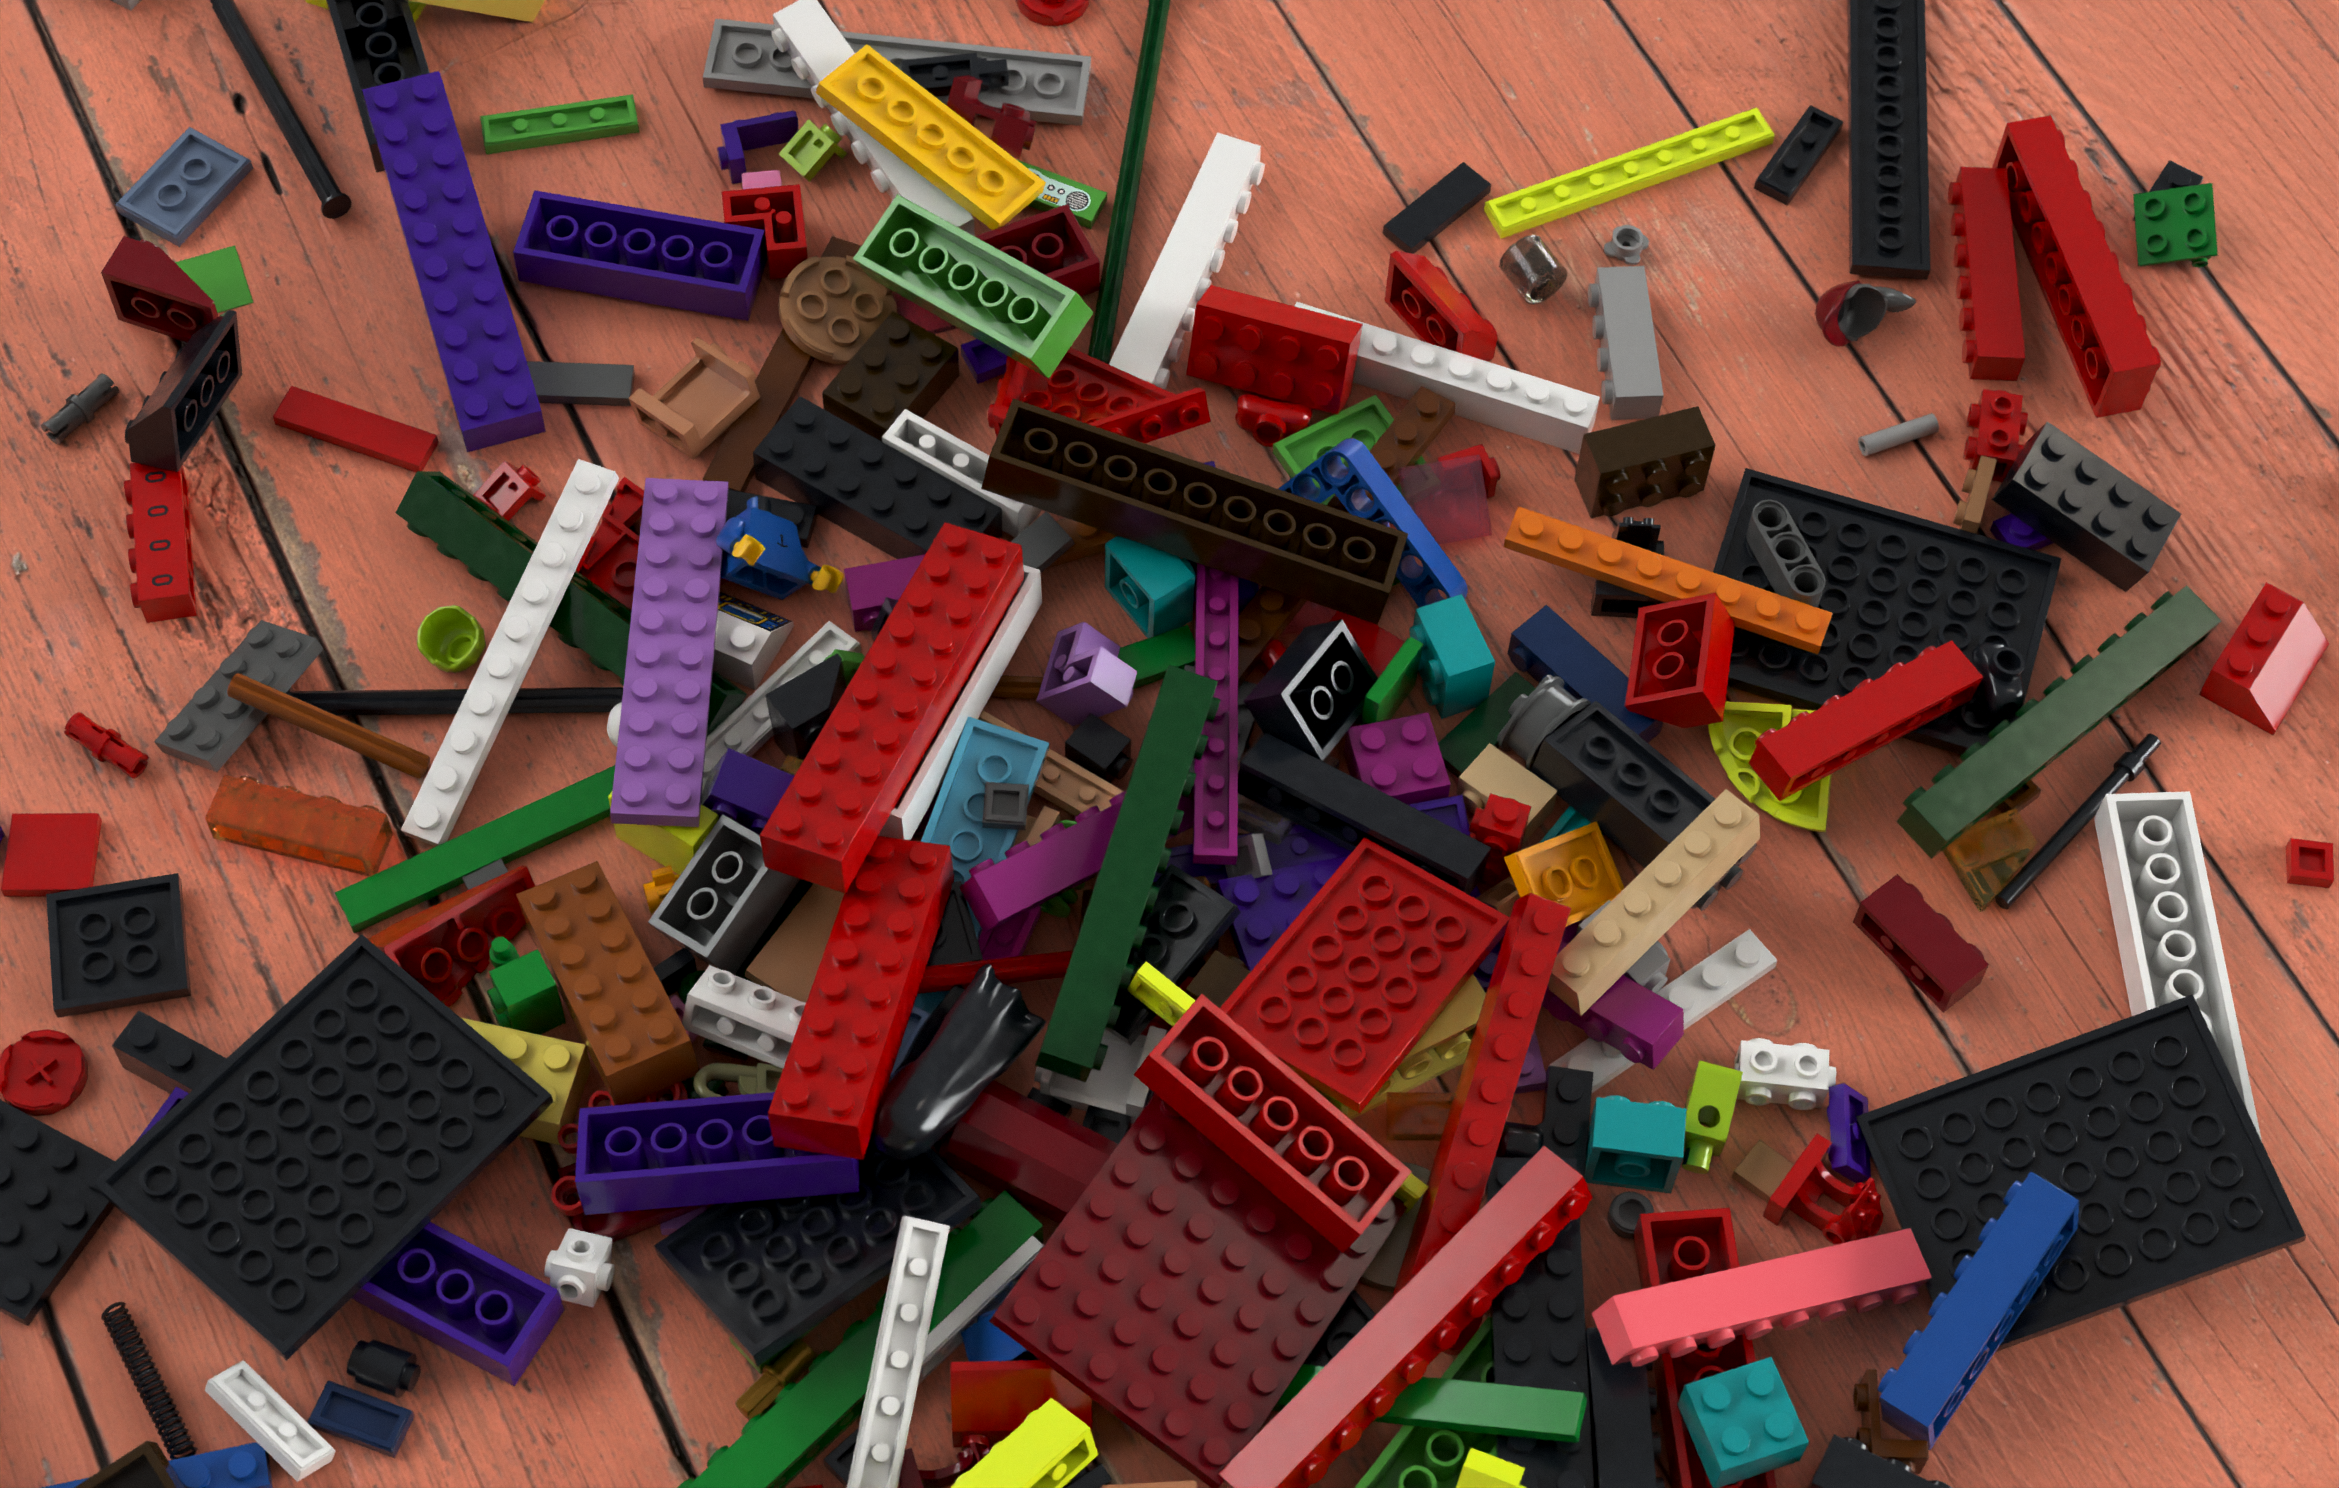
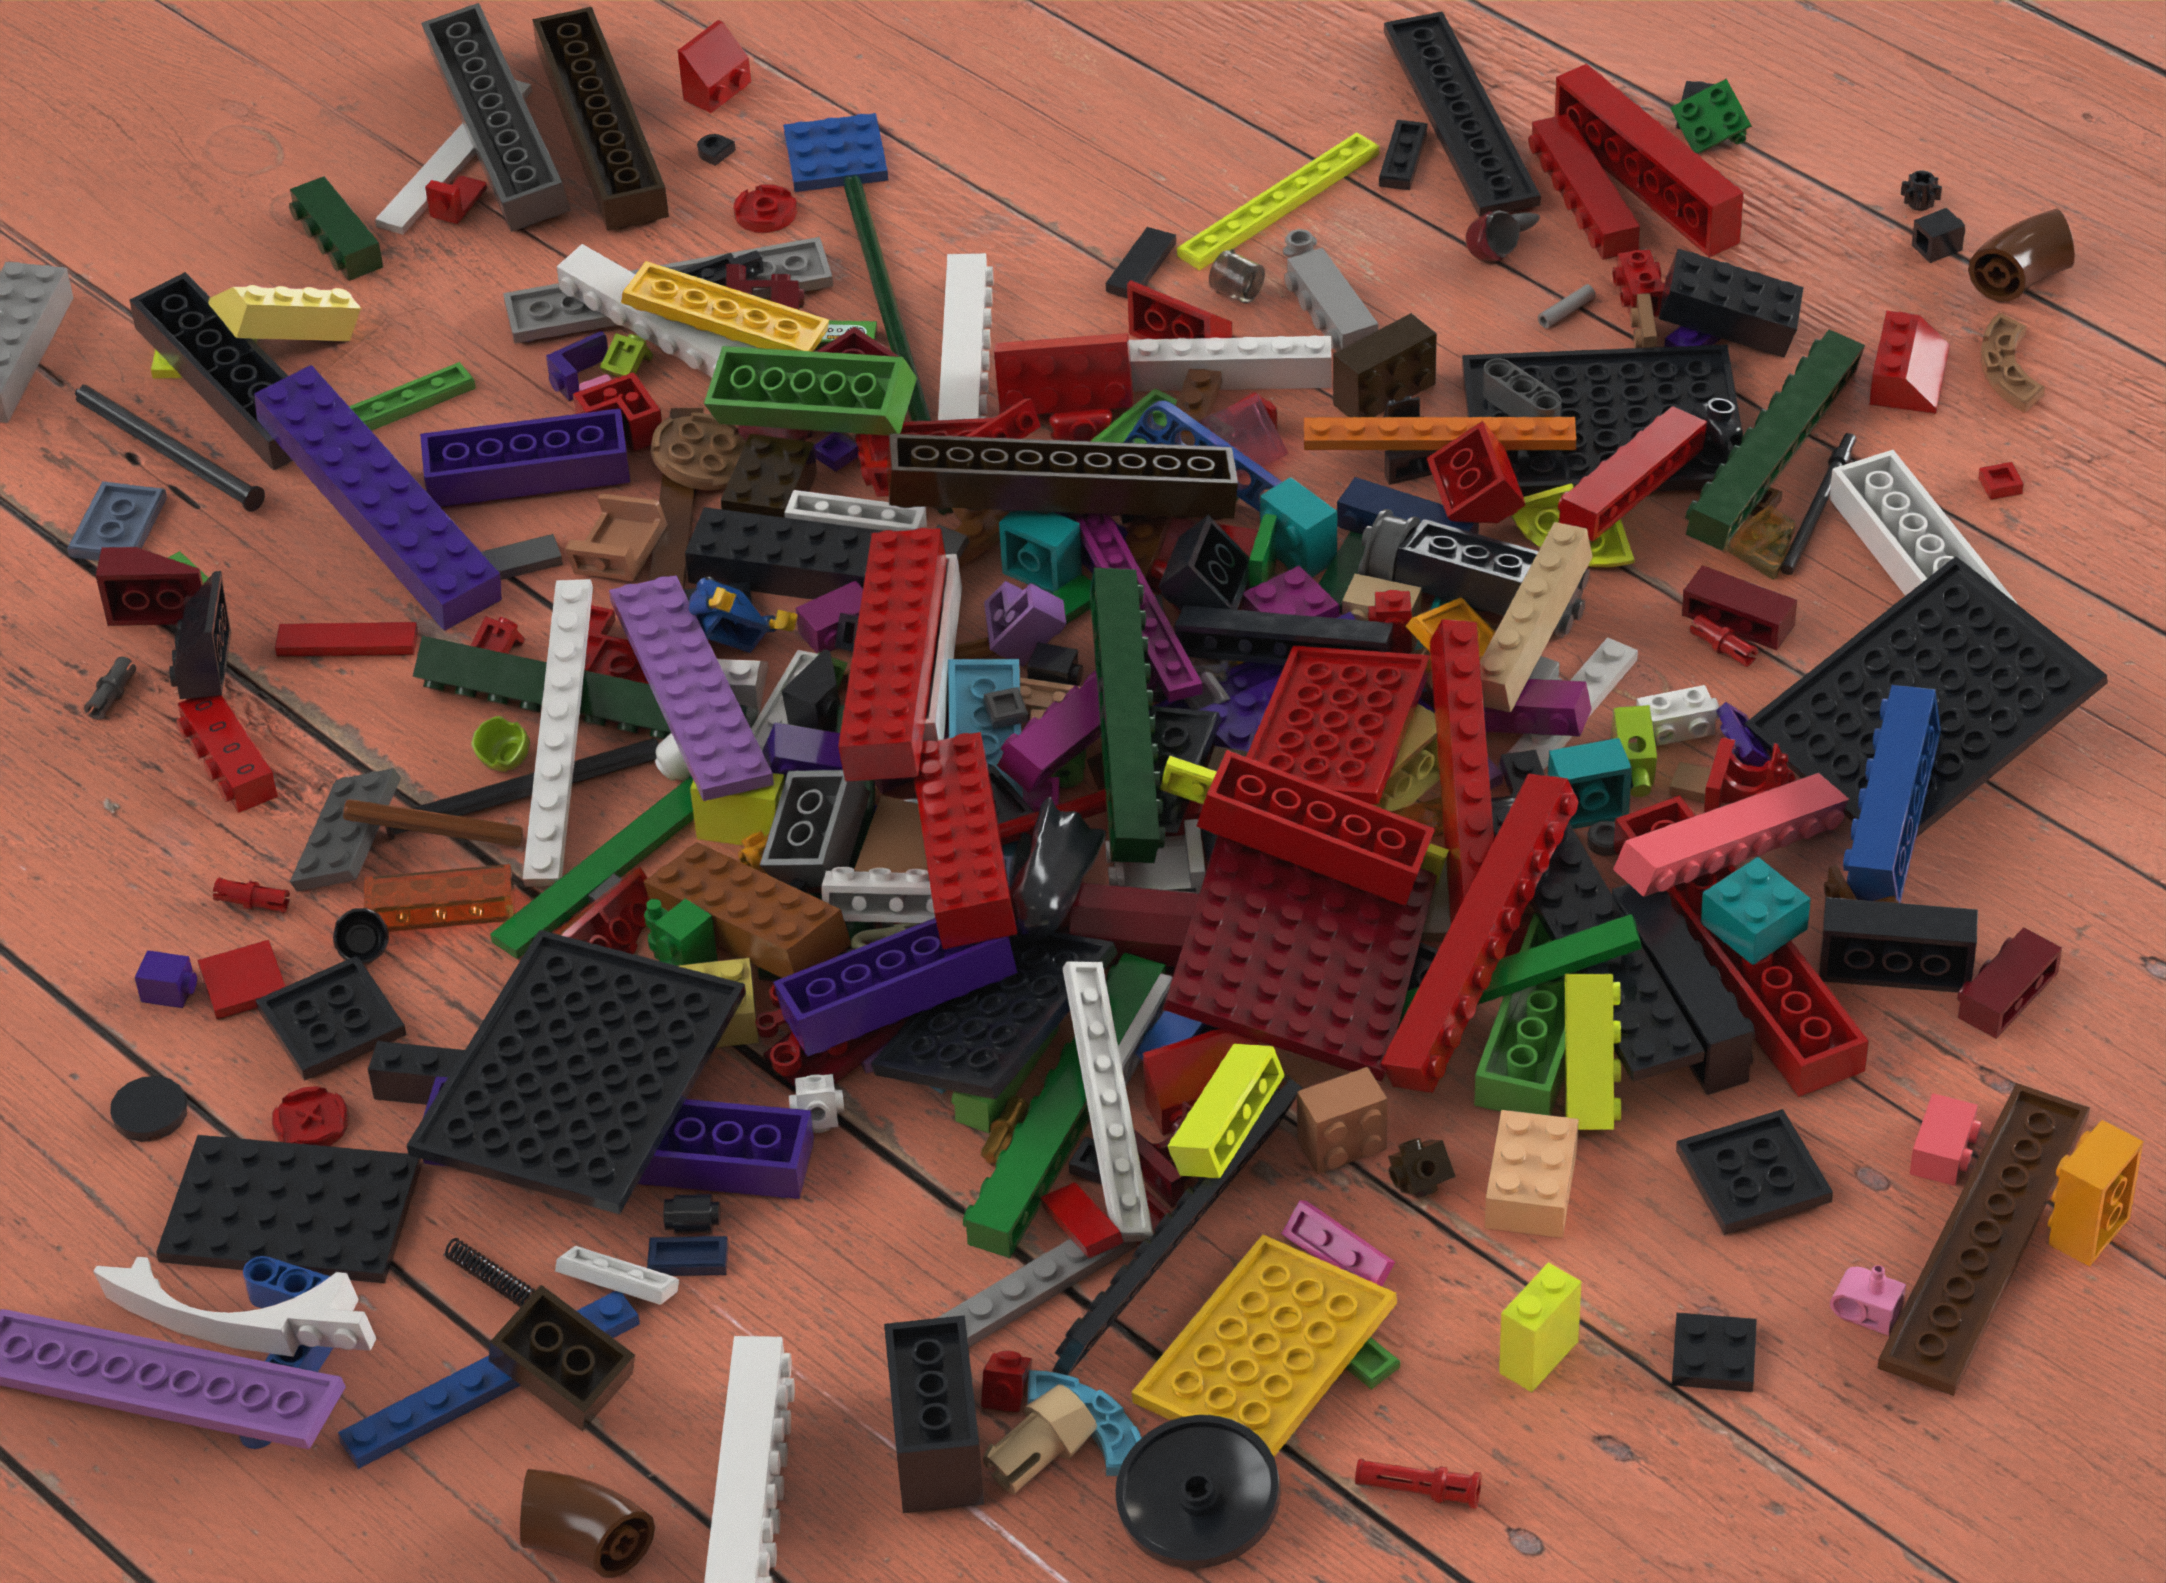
camera: 15 degrees left, 15 degrees down
(192, 849) = (361, 934): none -> black hair
(1883, 982) = (1723, 640): none -> red pin

